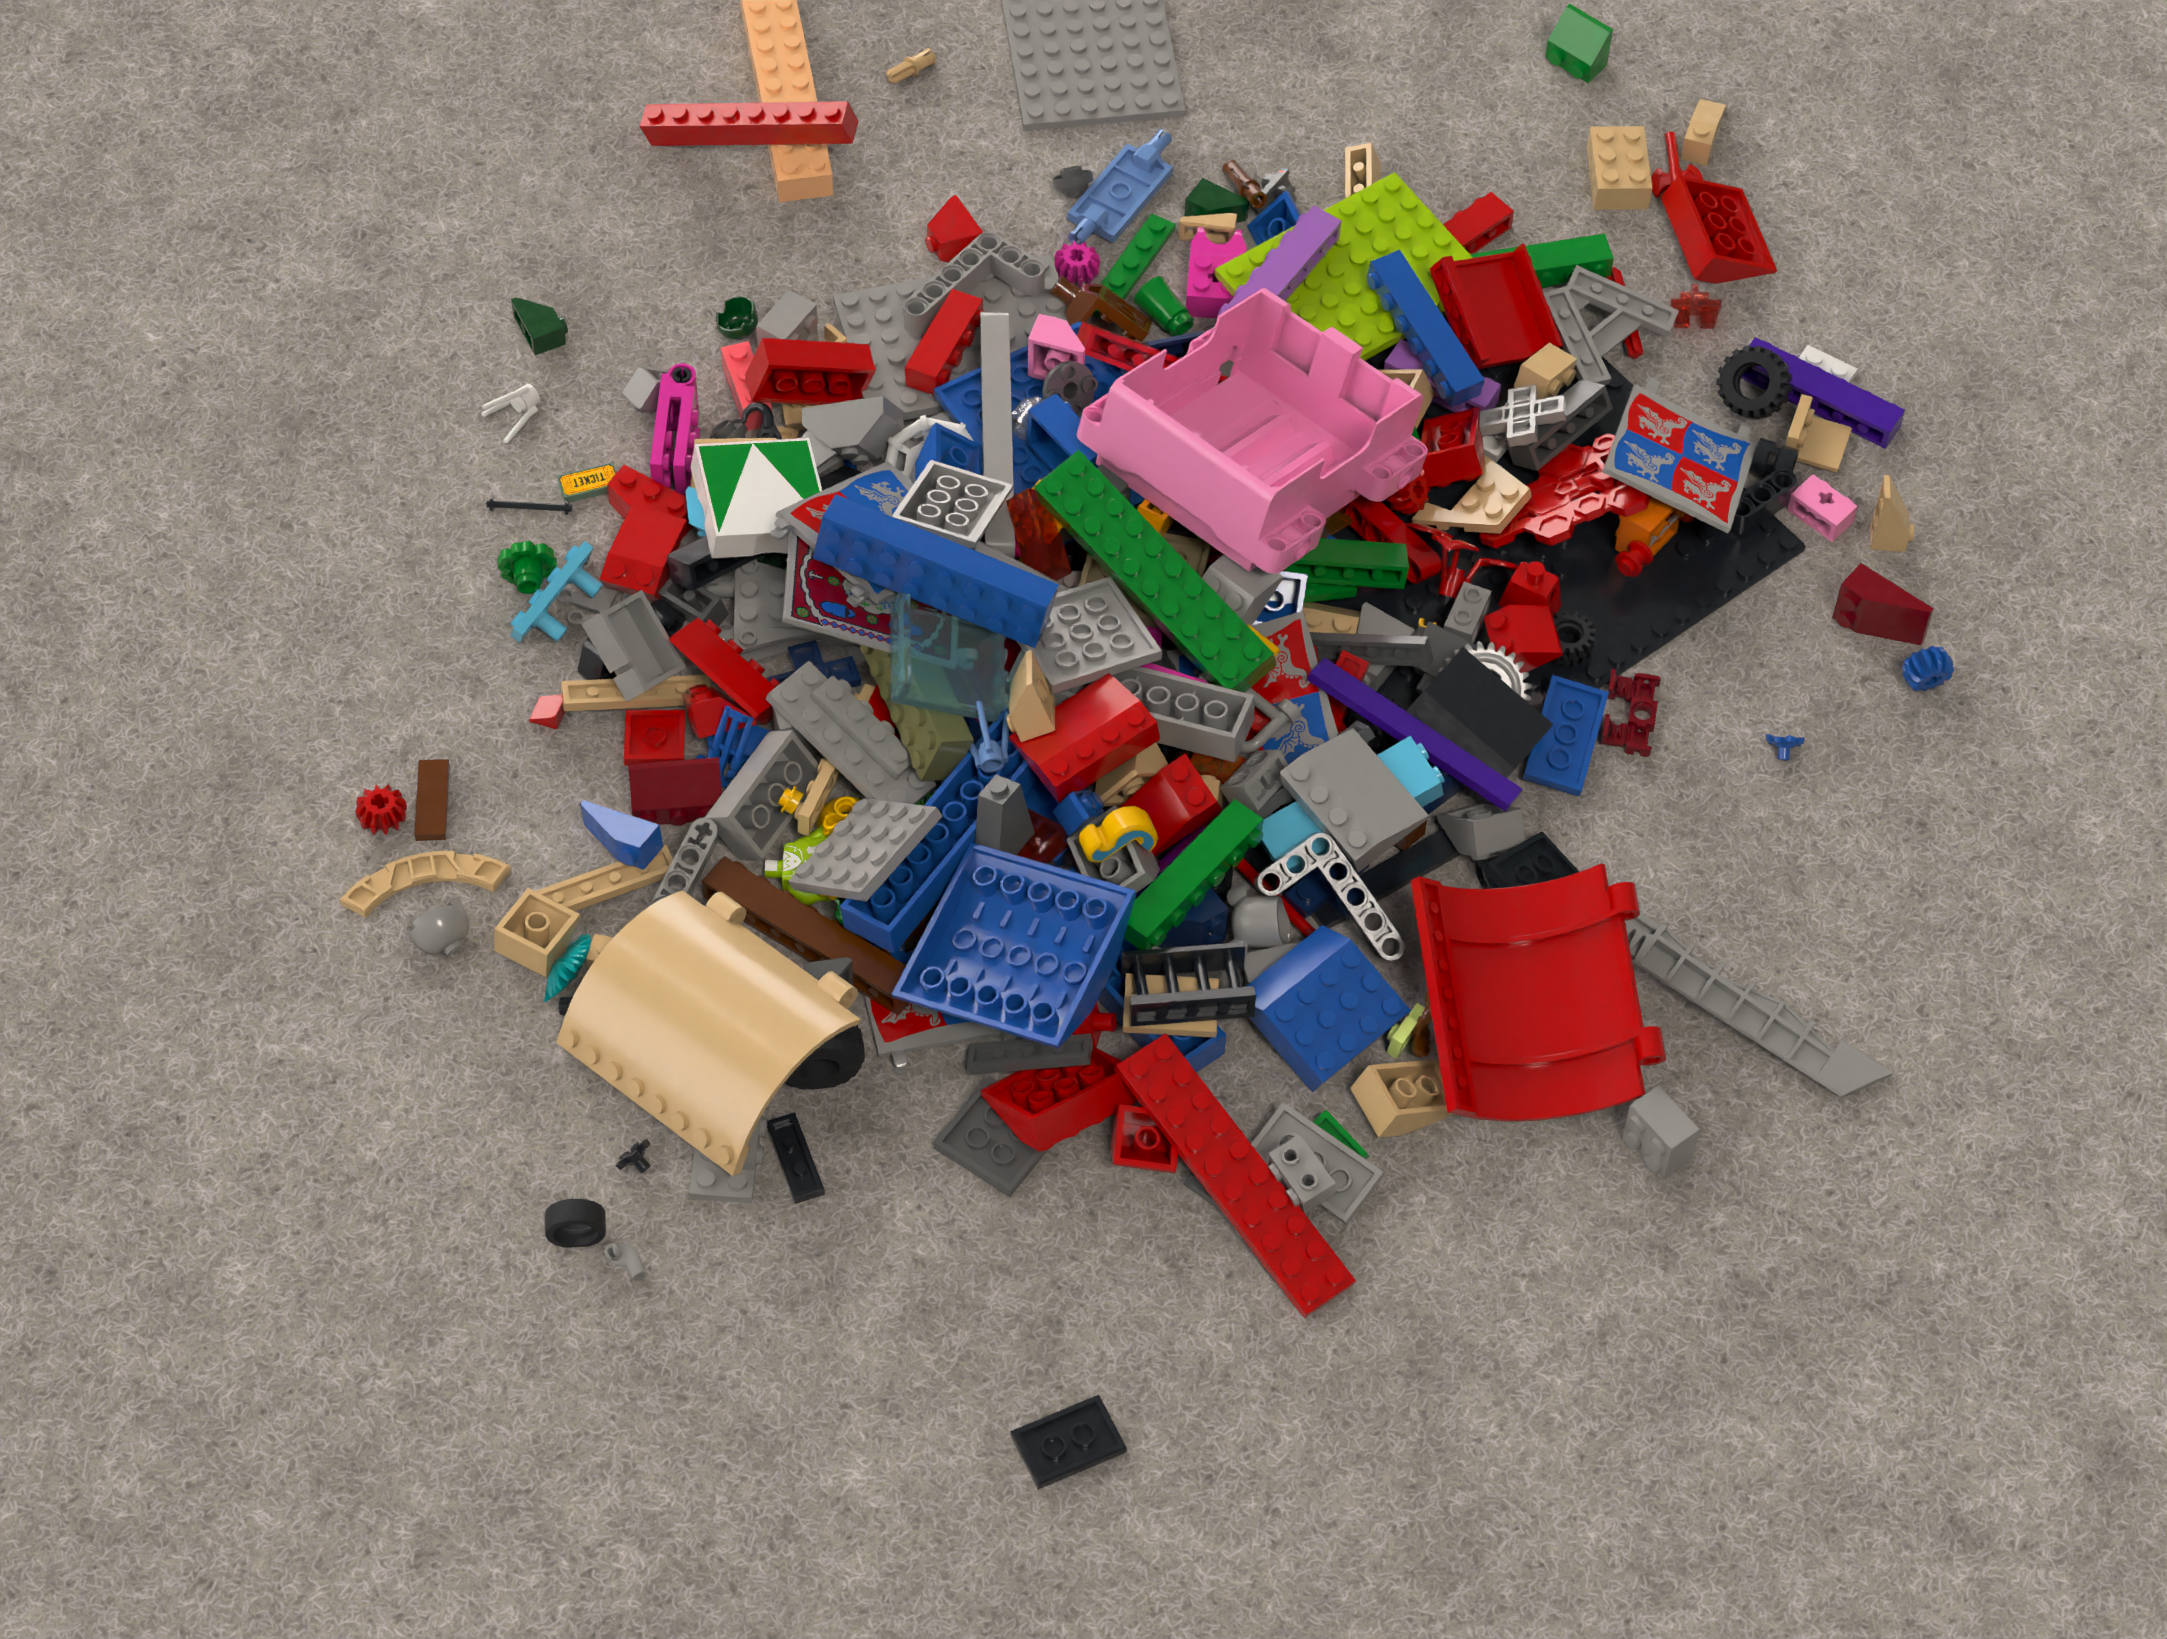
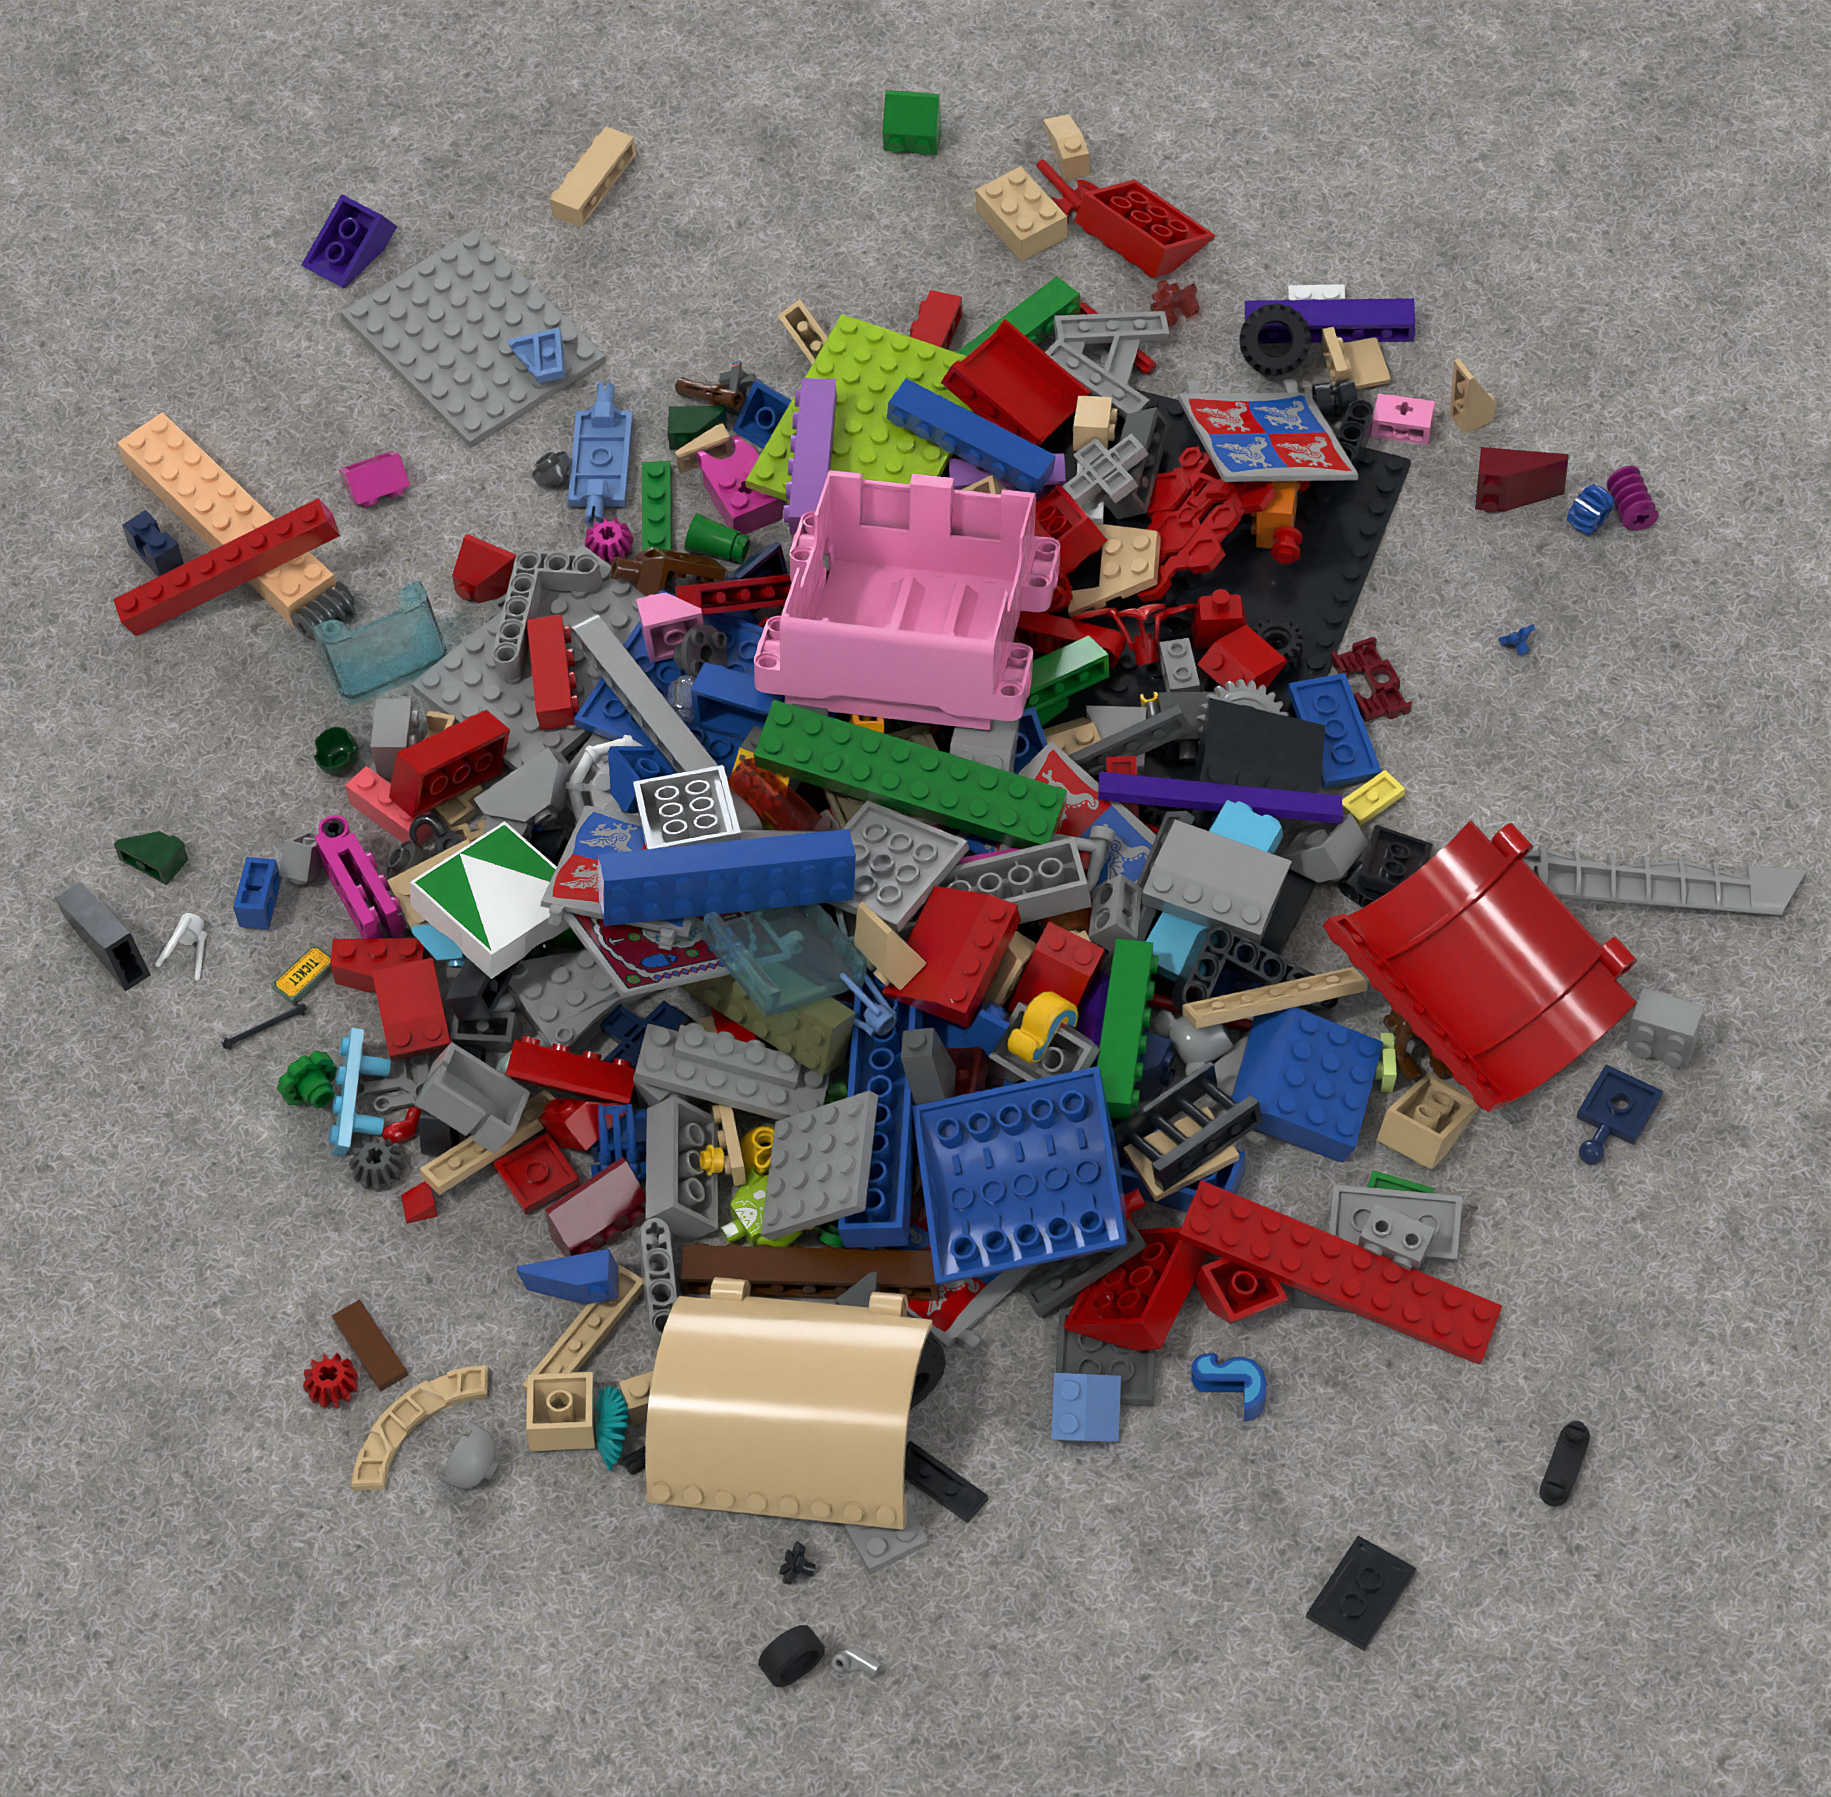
camera: 25 degrees left, 0 degrees up
(454, 368) = (103, 935): none -> black slope
(536, 660) = (387, 1167): none -> dark grey gear
(571, 645) = (405, 1129): none -> red arm
(594, 397) = (257, 893): none -> blue brick
(712, 75) = (160, 551): none -> dark blue brick
(808, 202) = (326, 608): none -> dark grey piece
(829, 256) = (383, 651): none -> clear light blue windscreen
(911, 66) = (328, 441): tan axle -> none
(925, 115) = (375, 478): none -> dark pink slope
(949, 1164) = (1086, 1407): none -> medium blue slope
(1088, 1208) = (1233, 1375): none -> blue animal
(1130, 82) = (541, 354): none -> medium blue wing
(1312, 1437) = (1565, 1464): none -> black piece
(1335, 920) = (1274, 997): none -> tan tile
(1558, 809) = (1373, 798): none -> light yellow plate
(1572, 1192) = (1622, 1123): none -> dark blue plate
(1973, 678) = (1632, 498): none -> magenta piece

